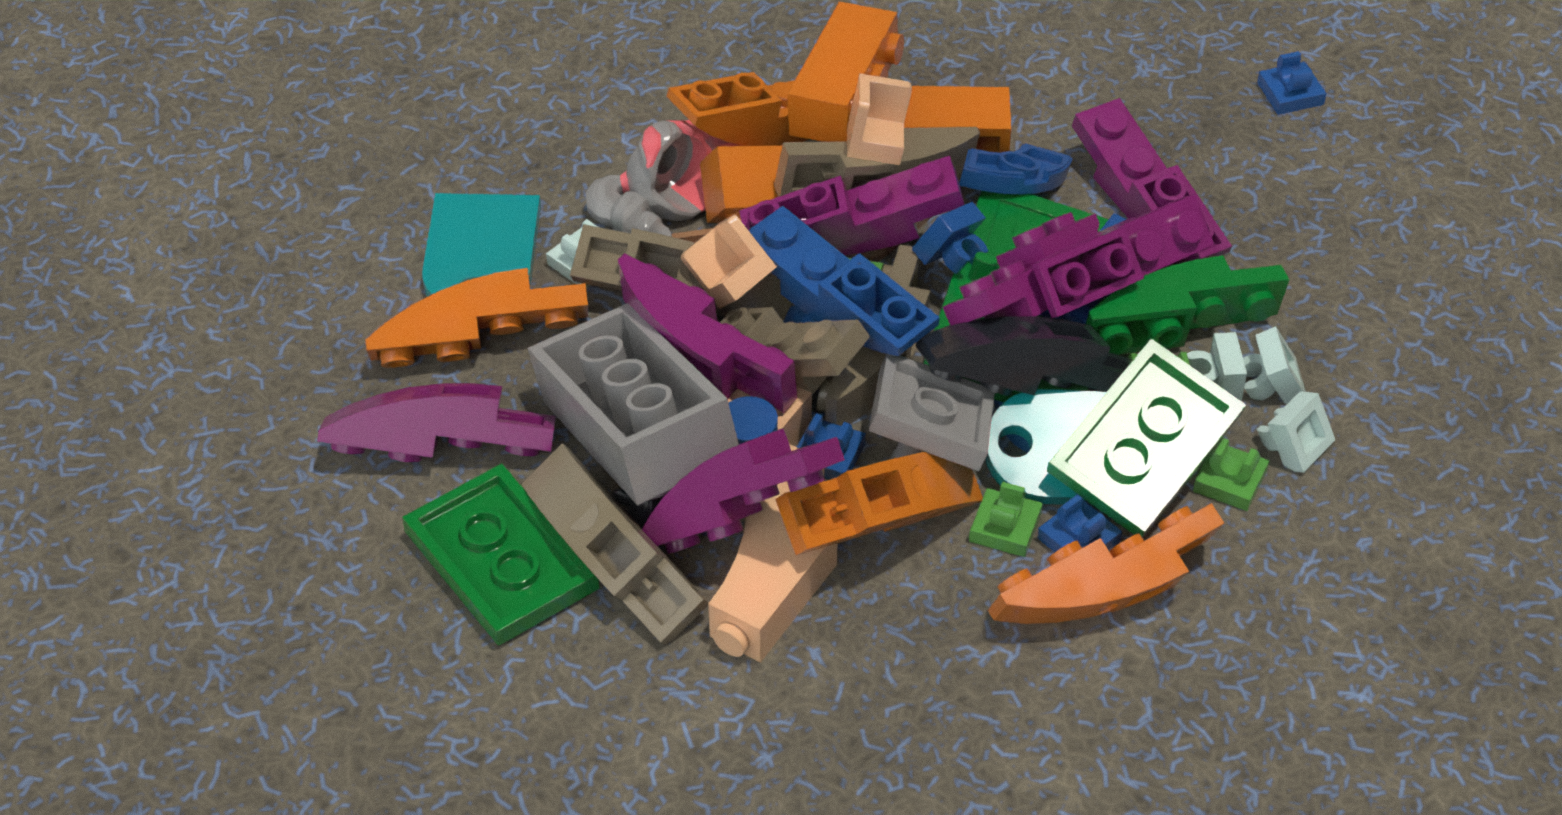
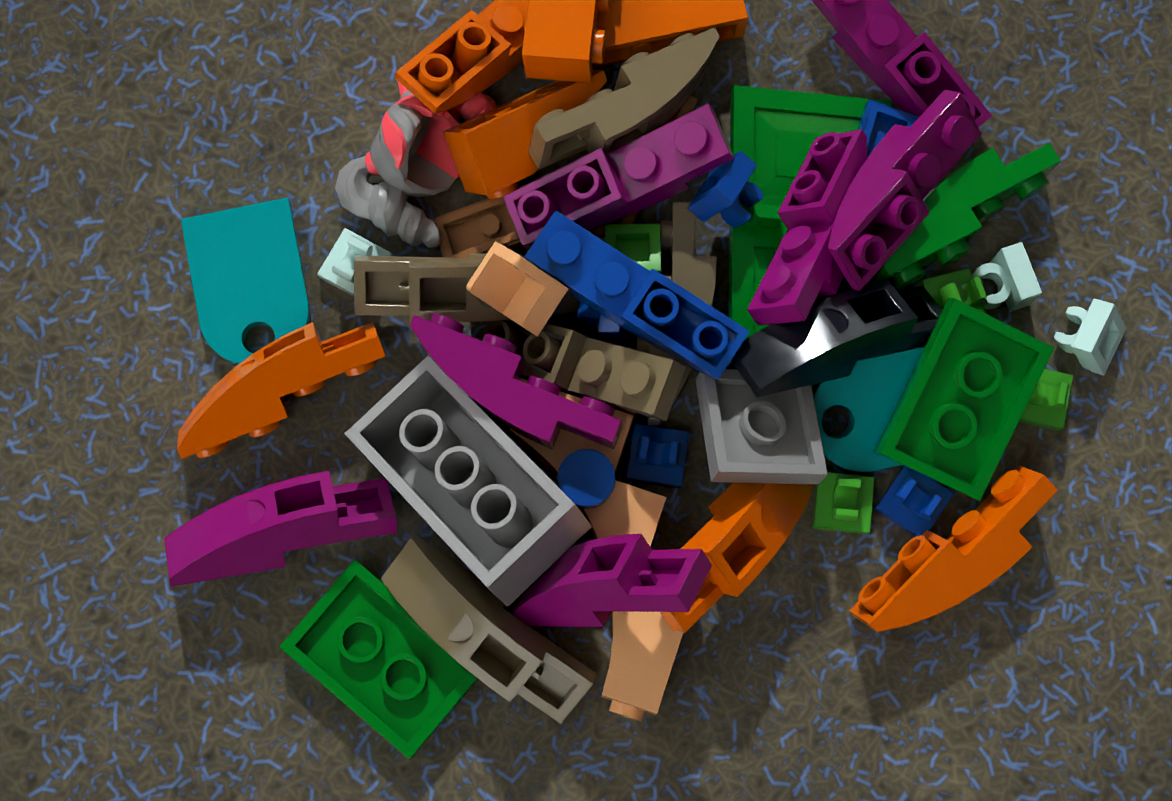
camera: 15 degrees left, 30 degrees up
(878, 119) = (624, 78): light nougat panel -> none
(1015, 172) = (761, 67): blue tile -> none
(1275, 367) = (1063, 261): light aqua tile -> none

